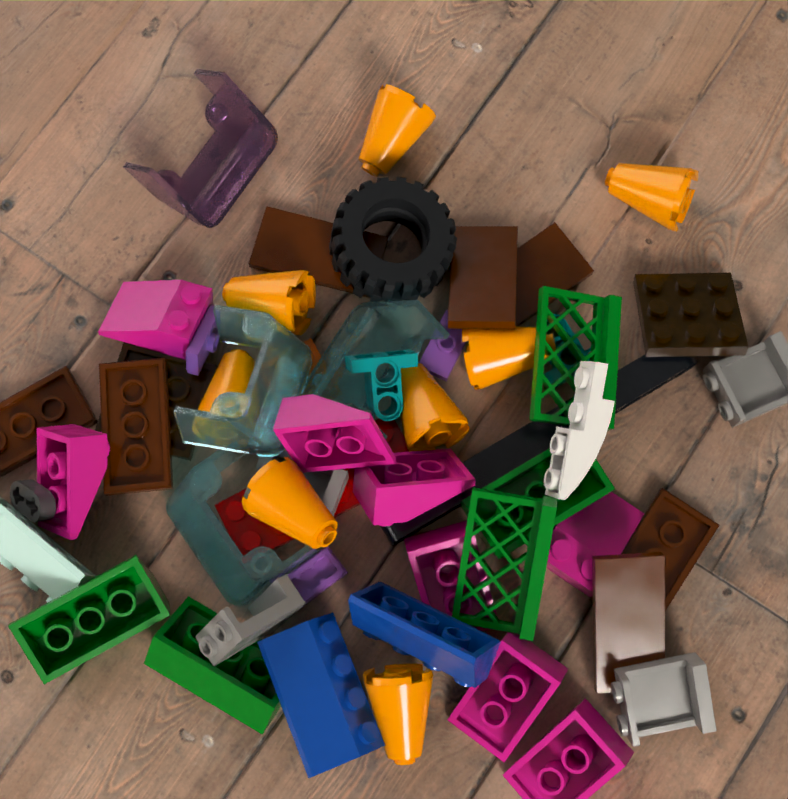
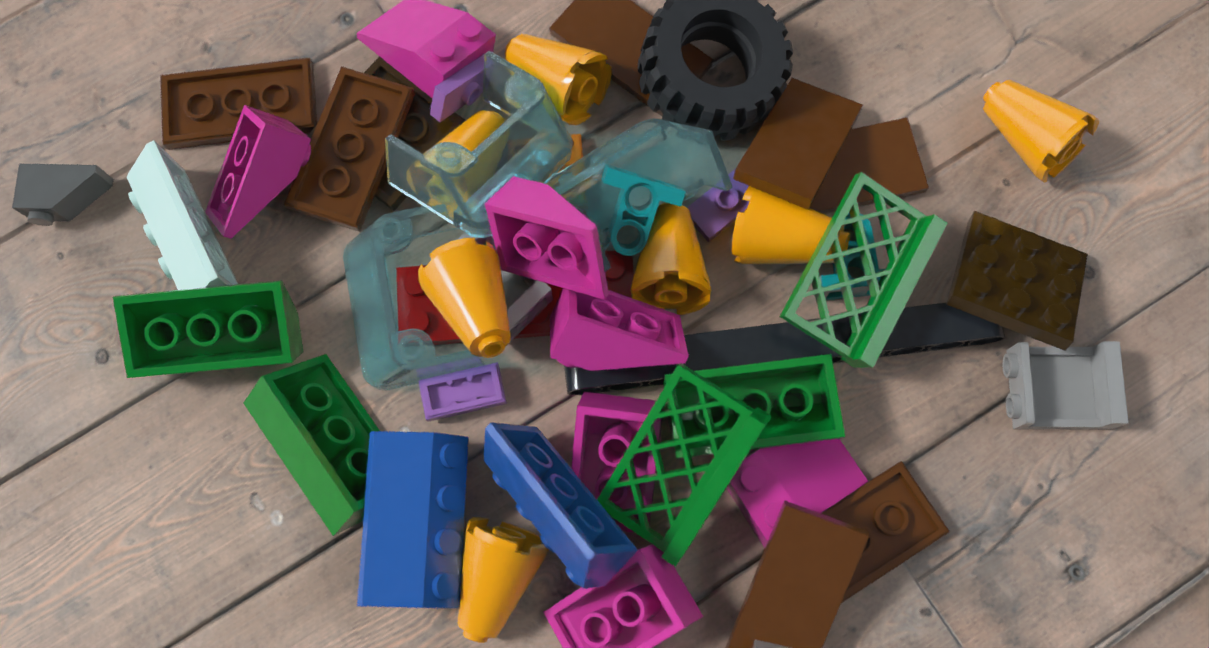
camera: 25 degrees right, 0 degrees up
(32, 500) = (208, 181): dark grey beam -> none
(228, 636) = (334, 412): light grey panel -> none
(577, 447) = (823, 367): white slope -> none

